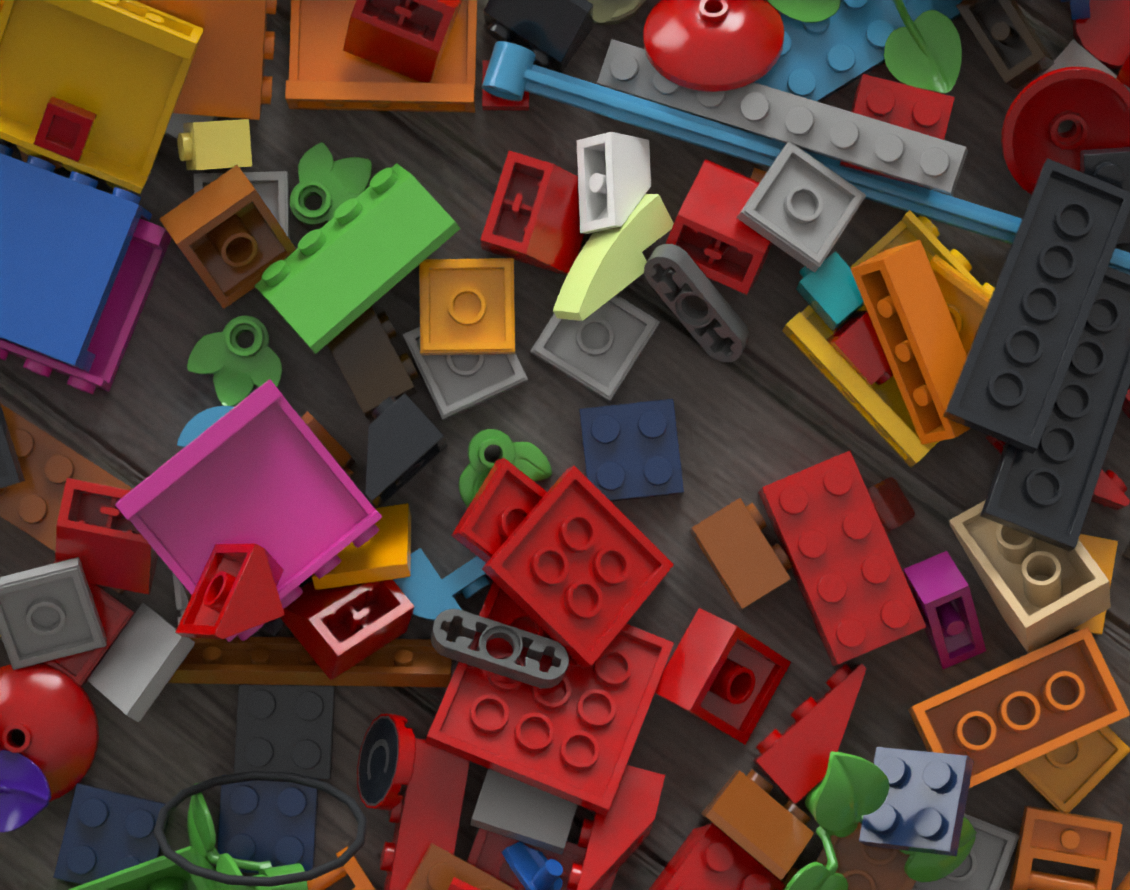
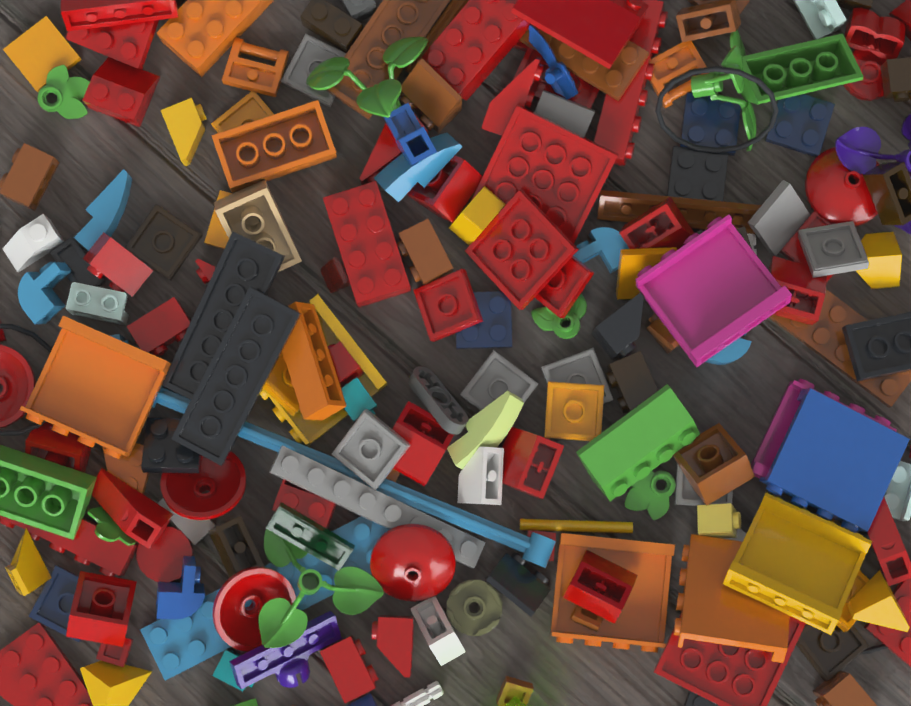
camera: 175 degrees left, 0 degrees up
(65, 129) = (809, 532): red plate -> none
(233, 593) = (726, 237): red slope -> none
(234, 367) = (712, 389): bright green plate -> none
(385, 761) = (641, 149): tile -> none
(449, 124) = (576, 526): none -> yellow bar
(491, 629) = (554, 191): dark grey beam -> none
(656, 624) = (477, 215): none -> yellow slope
(694, 467) = (448, 305): none -> red tile
(768, 700) = (400, 177): none -> dark azure slope
(787, 741) = (409, 134): none -> blue brick
(887, 59) = (310, 536): none -> dark green tile
(922, 803) = (336, 96): plate -> none
(946, 609) = (309, 211): magenta slope -> none

